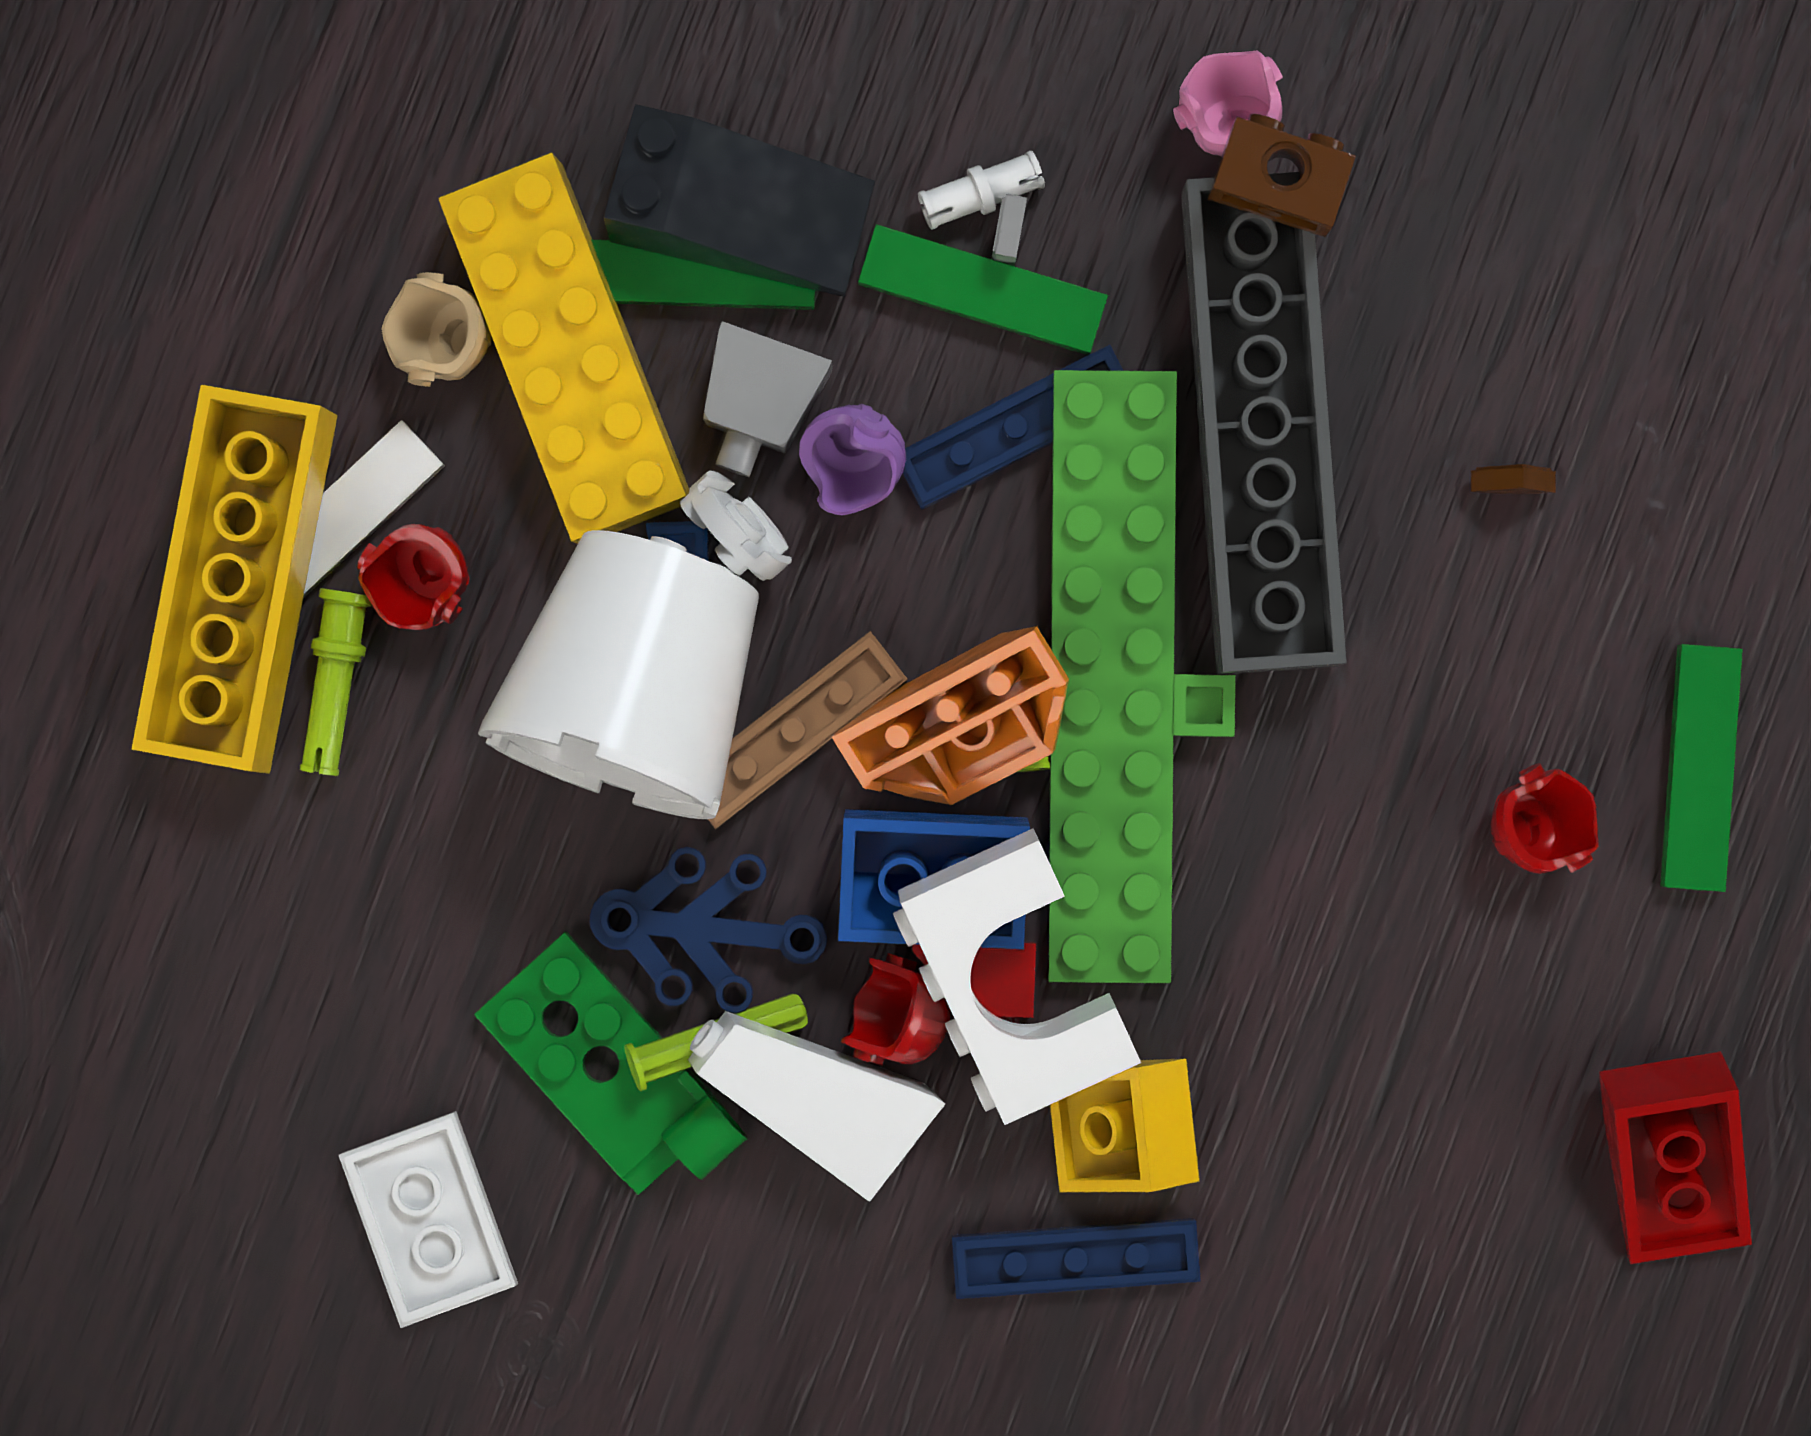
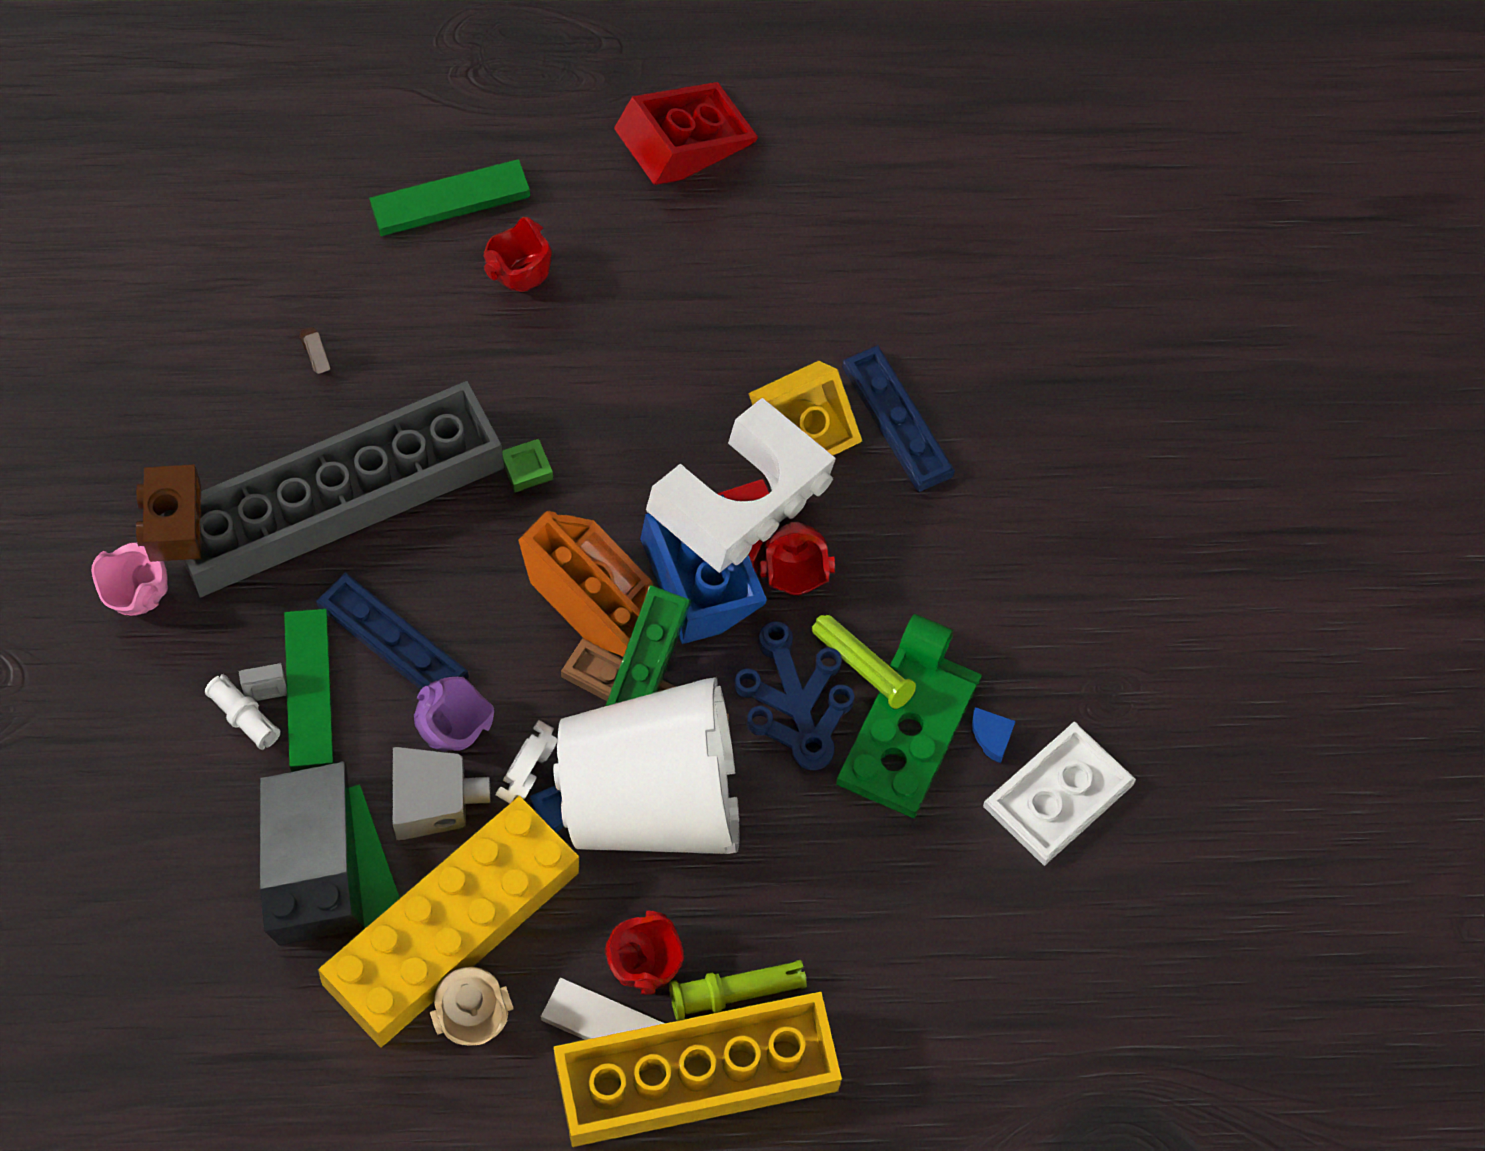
camera: 115 degrees left, 25 degrees down
(546, 1168) = (992, 733): none -> blue tile
(818, 739) = (650, 645): none -> green tile
(823, 1102) = (870, 575): white slope -> none
(1118, 651) = (482, 534): bright green plate -> none

